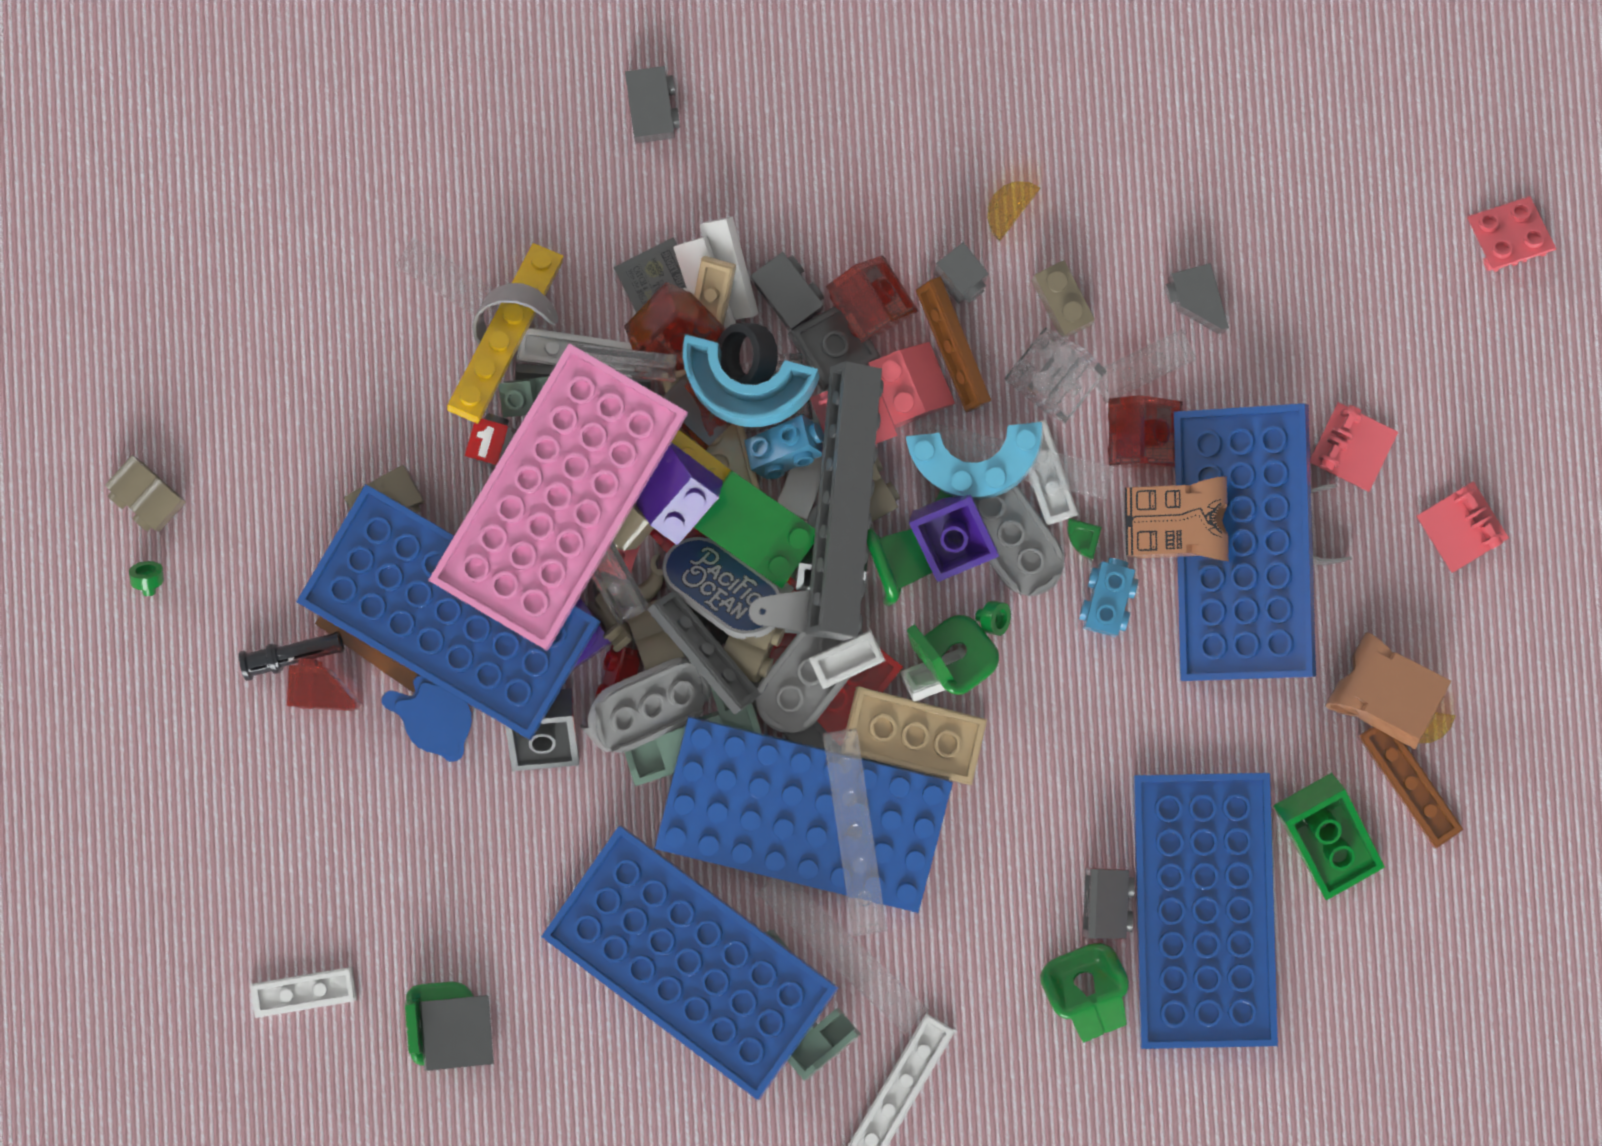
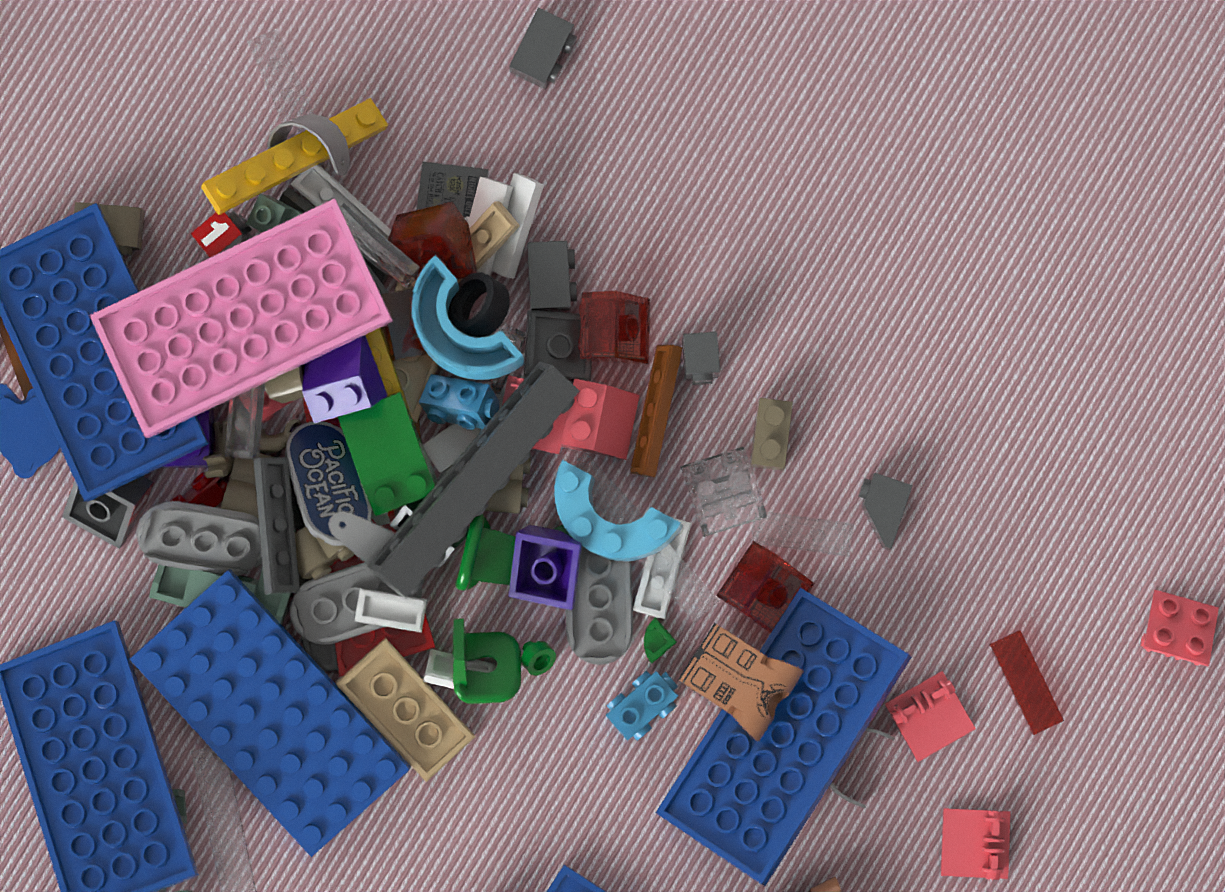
camera: 40 degrees right, 0 degrees up
(854, 832) = (300, 756): clear tile -> none
(1008, 205) = (779, 327): clear yellow tile -> none
(1413, 365) = (1026, 682): none -> clear red tile

